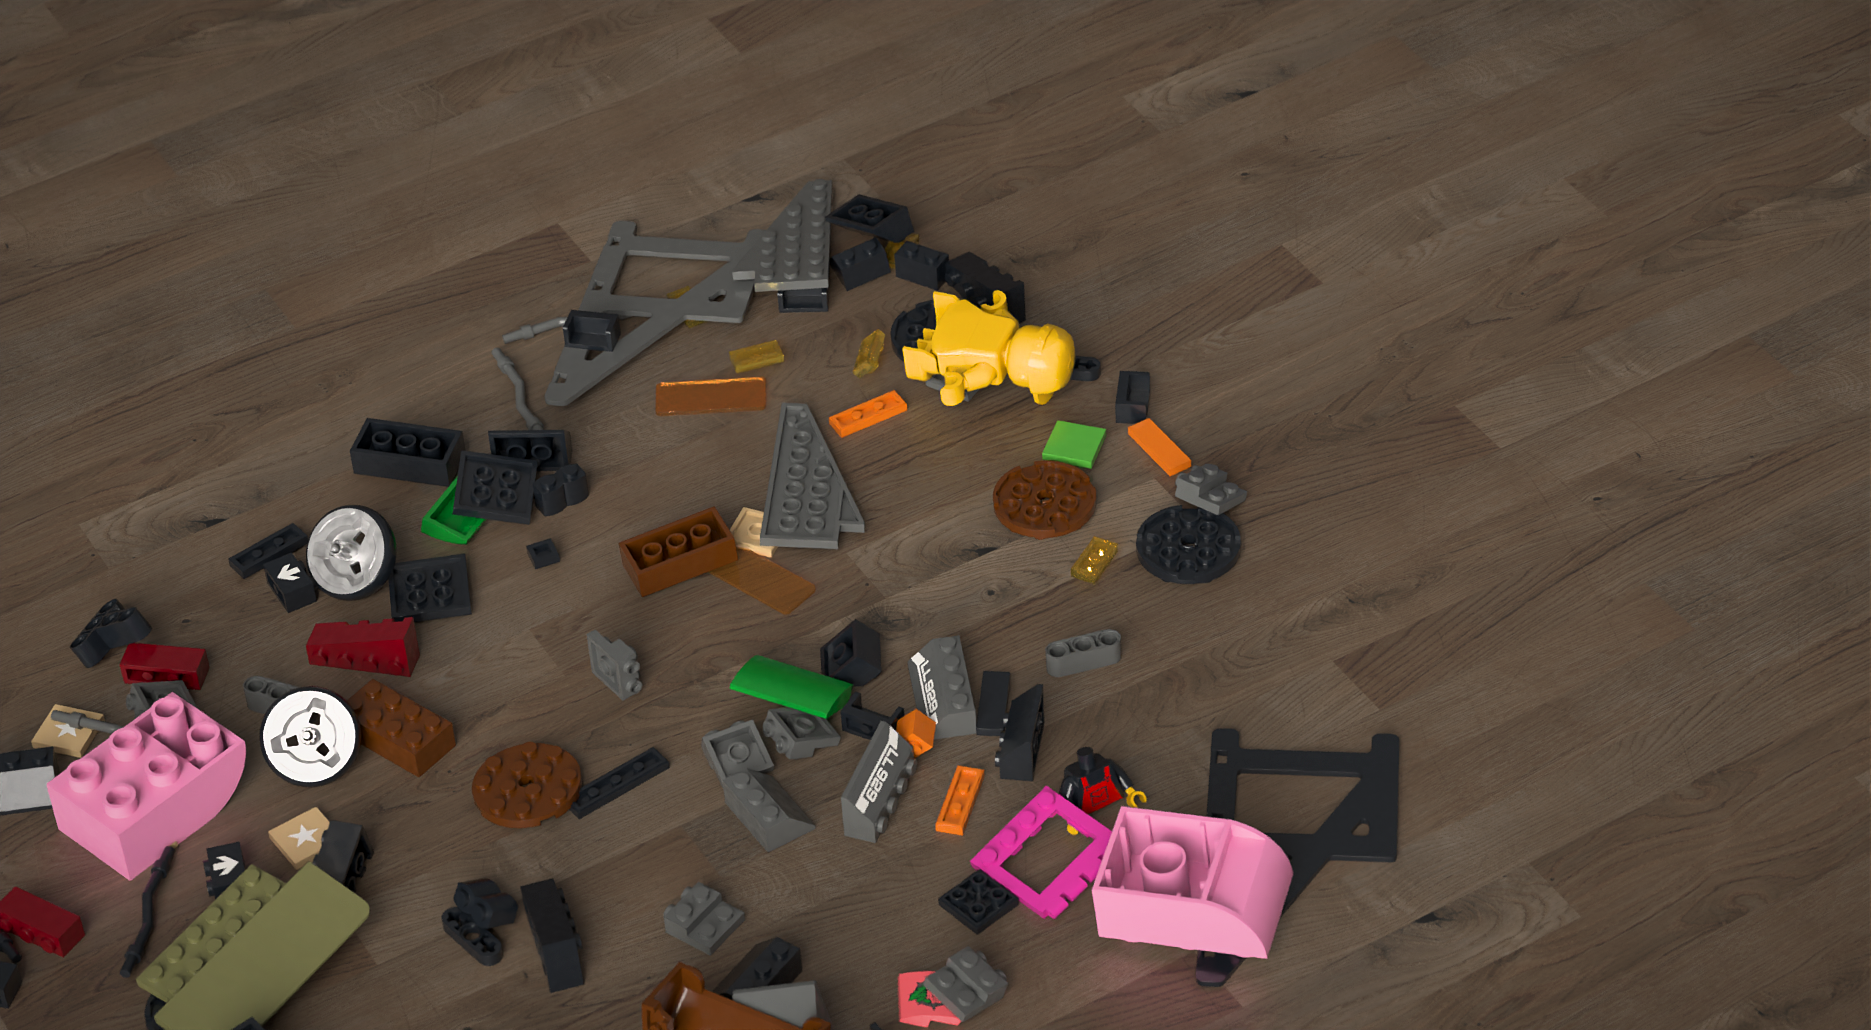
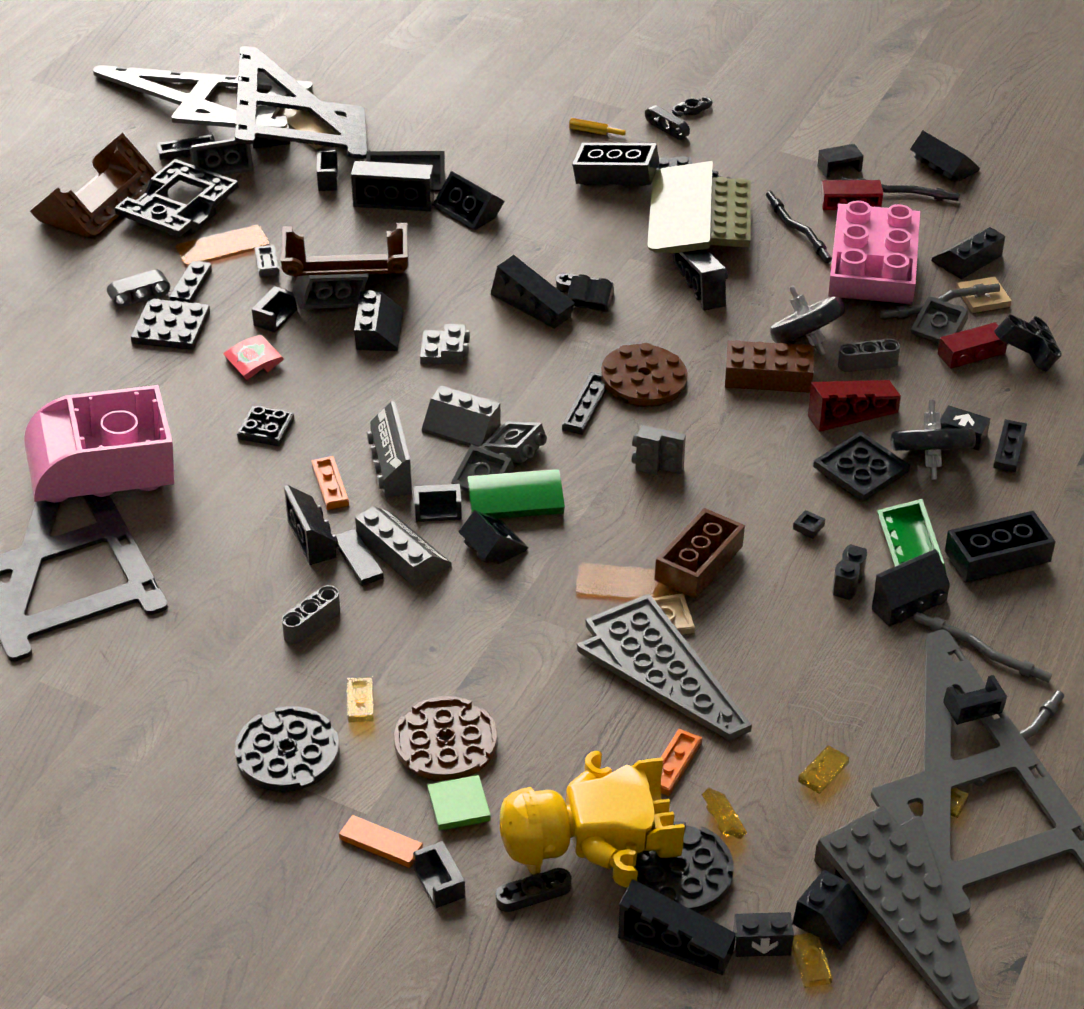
camera: 145 degrees right, 0 degrees up
(224, 866) = (772, 255): black brick -> none
(300, 837) = (752, 296): tan tile -> none
(495, 487) = (897, 539): black plate -> none
(710, 396) = (827, 722): clear orange piece -> none
(873, 218) = (851, 941): black slope -> none
(917, 731) = (393, 497): orange brick -> none
(967, 984) = (230, 364): dark grey plate -> none
(1028, 823) = (255, 475): dark pink hinge -> none
(1096, 783) = (227, 512): black torso -> none
(1208, 489) = (297, 800): dark grey plate -> none

